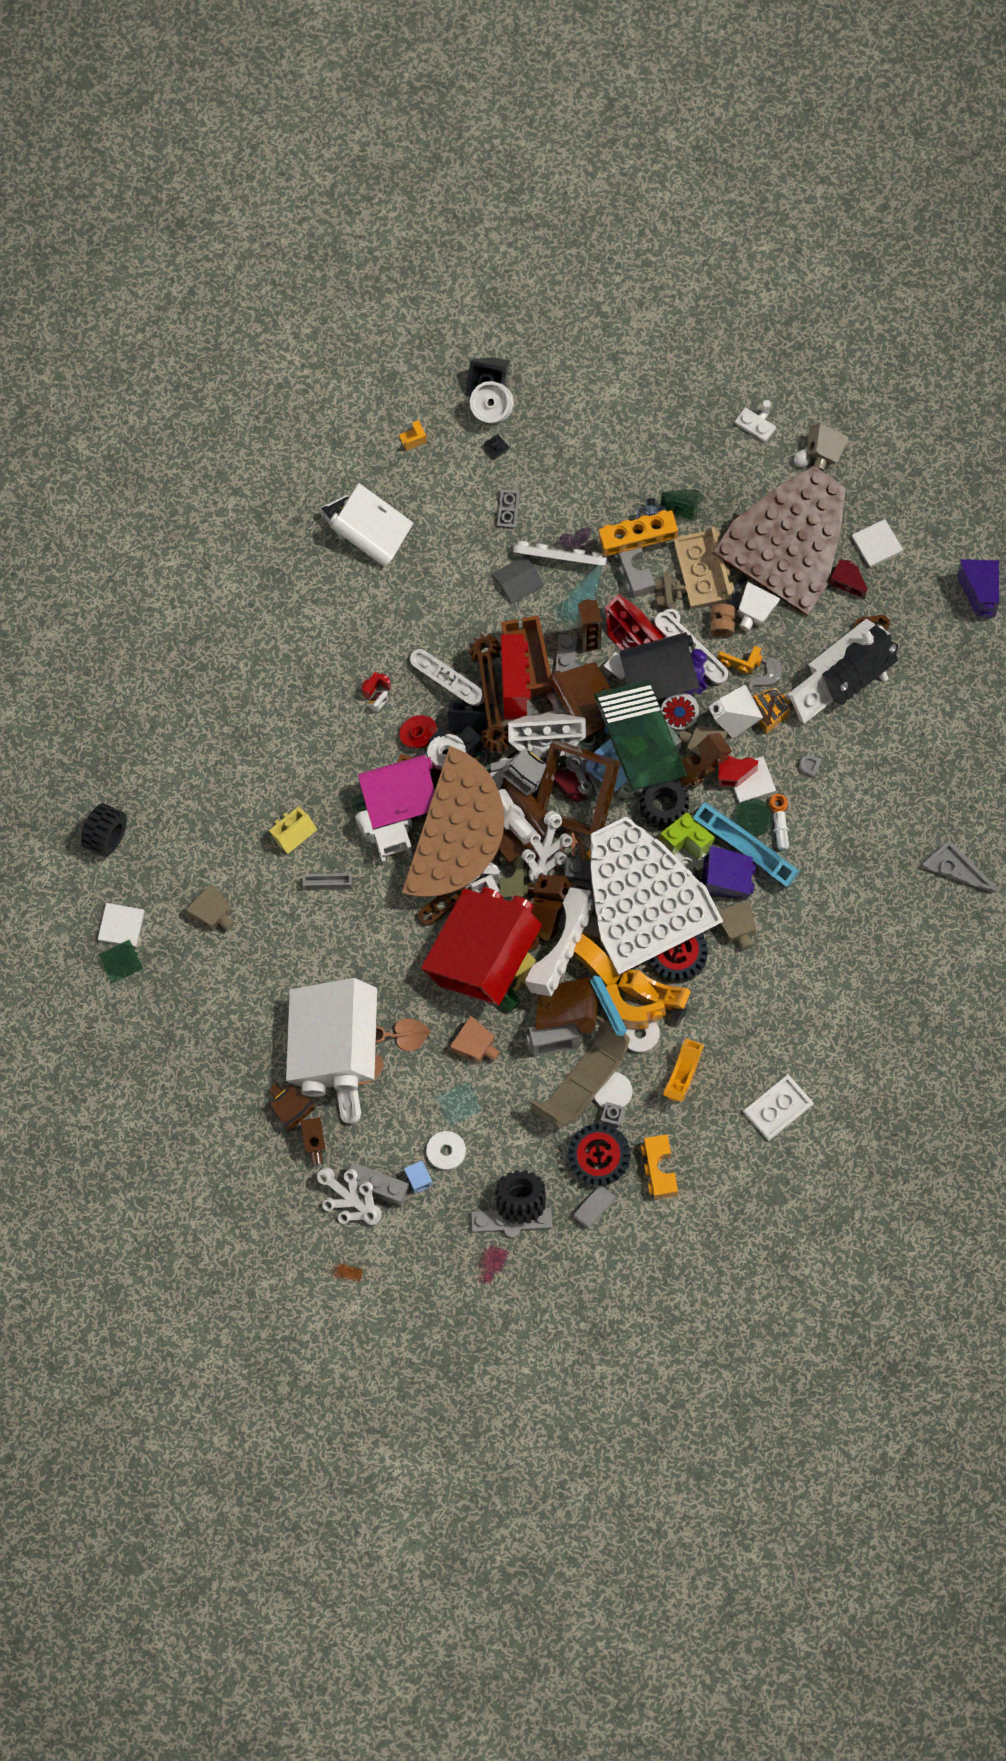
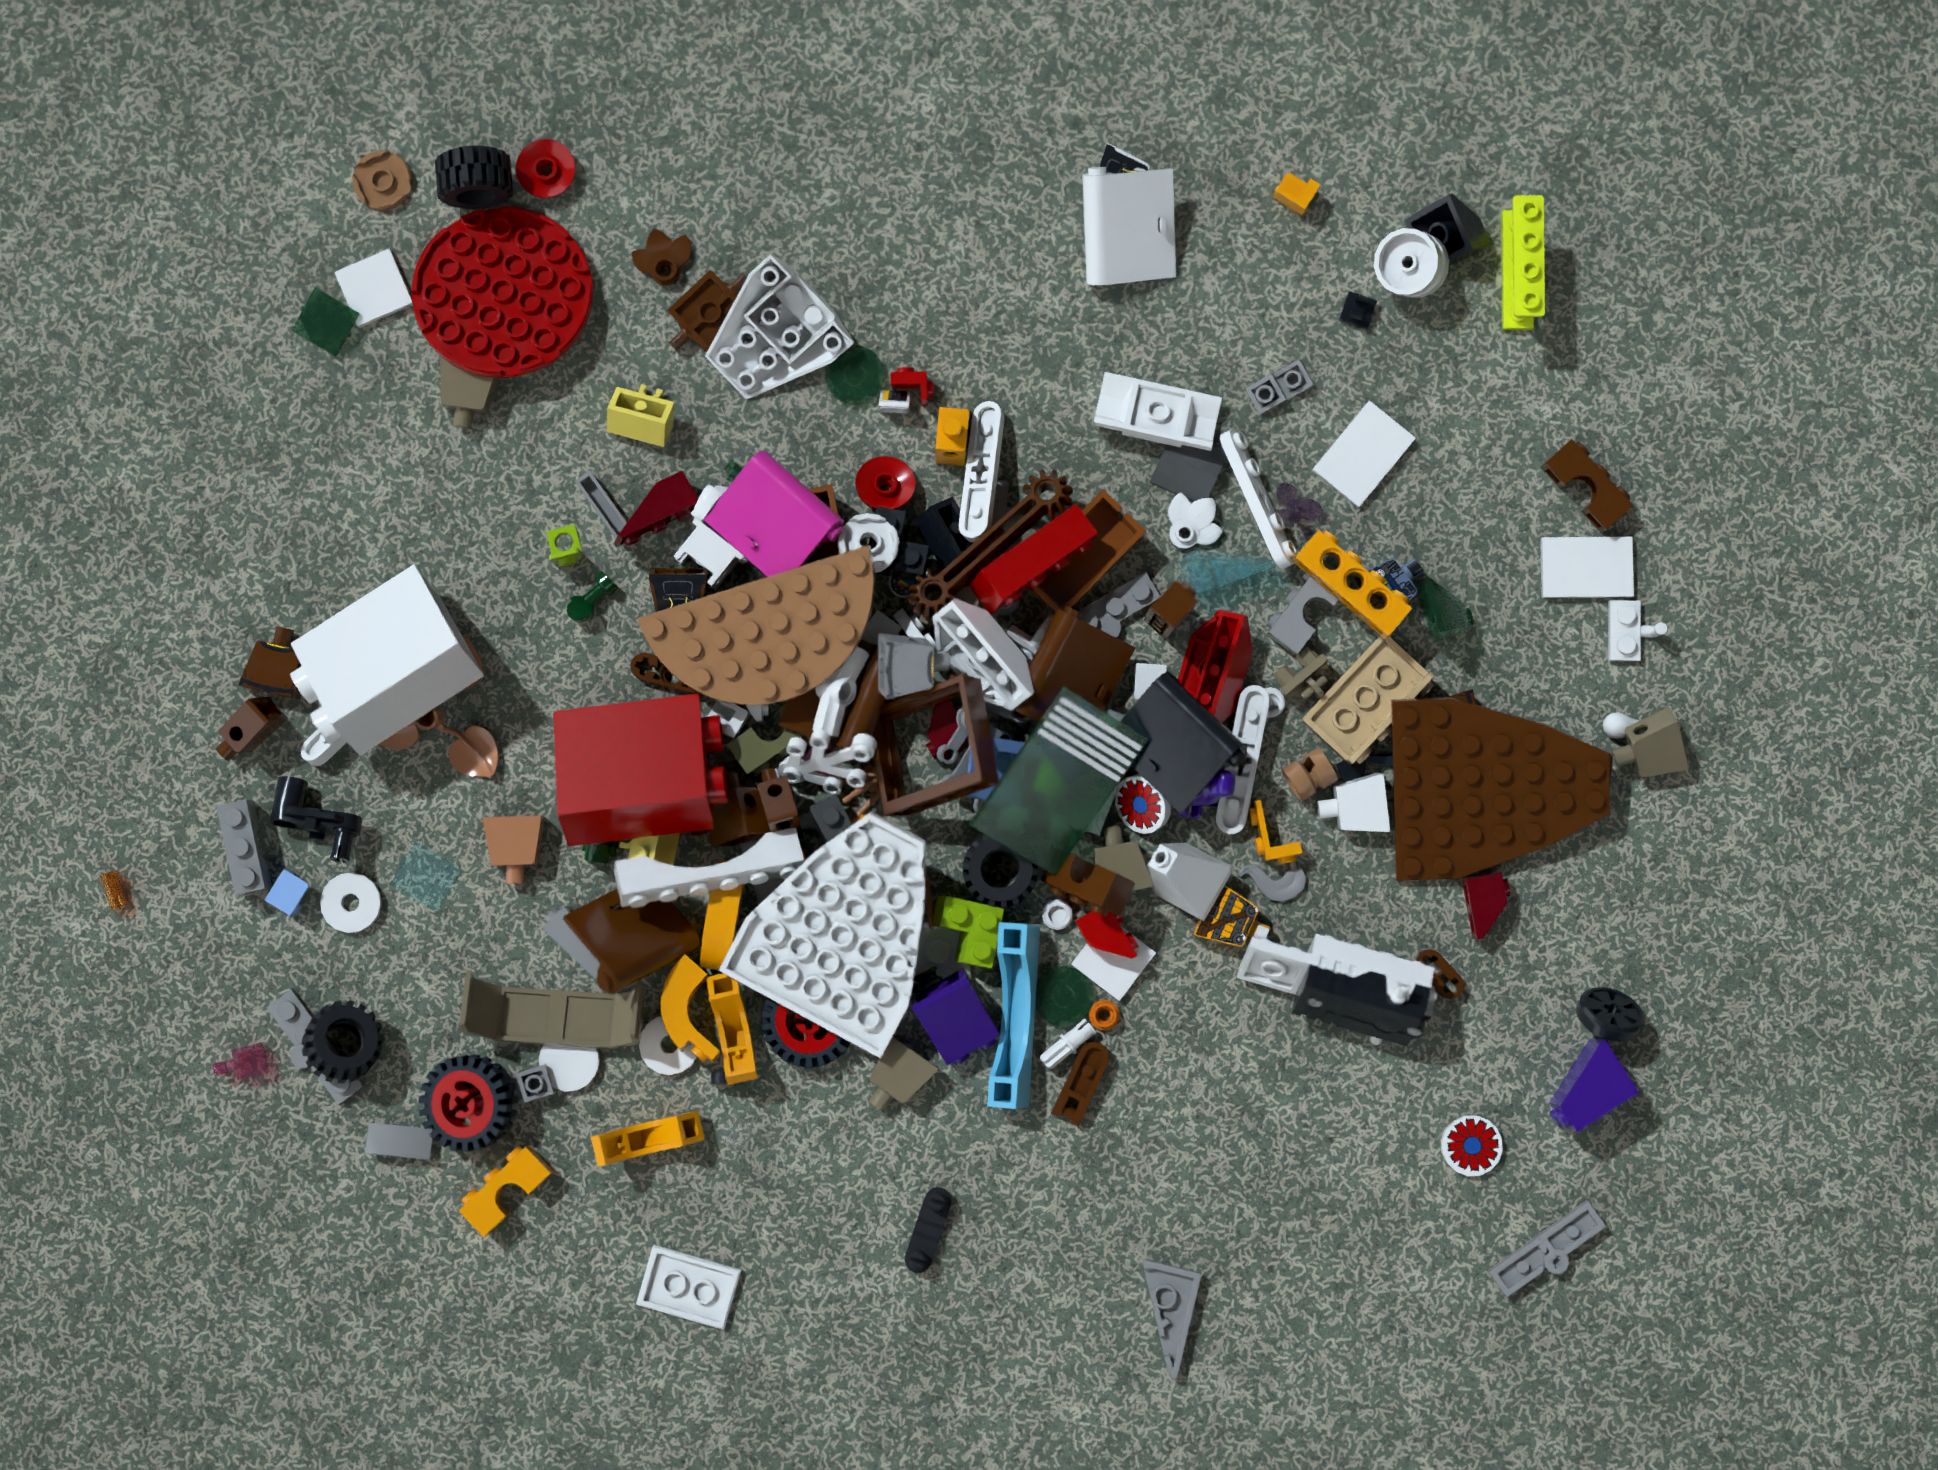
camera: 55 degrees right, 15 degrees up
(71, 882) = (382, 190): none -> medium nougat tile
(123, 786) = (537, 156): none -> red dish
(173, 858) = (502, 292): none -> red tile
(211, 767) = (662, 253): none -> reddish brown plate
(261, 762) = (703, 310): none -> reddish brown plate
(298, 733) = (776, 331): none -> white wedge
(340, 916) = (567, 557): none -> lime bracket
(348, 712) = (855, 376): none -> clear green tile
(348, 851) = (665, 502): none -> dark red slope
(351, 1197) = (202, 860): white plant -> none
(371, 926) = (582, 607): none -> dark green leg
(389, 1137) = (290, 813): none -> black piece
(397, 869) = (677, 586): none -> black torso
(415, 679) = (952, 436): none -> light orange torso
(477, 574) = (1157, 412): none -> white piece
(531, 349) = (1523, 262): none -> neon yellow fence
(547, 592) = (1195, 518): none -> white plate
(573, 491) = (1363, 454): none -> white tile
(608, 1005) = (660, 988): medium azure axle -> none
(682, 389) = (1607, 500): none -> reddish brown arch
(708, 793) = (1057, 914): none -> white tile
(709, 422) = (1587, 567): none -> white tile
(806, 836) = (1082, 1081): none -> reddish brown plate
(809, 765) = (1185, 1021): light grey tile -> none
(831, 963) = (928, 1230): none -> black piece
(877, 543) = (1563, 904): white tile -> none
(949, 553) = (1610, 1014): none -> black wheel
(972, 666) = (1471, 1145): none -> tile

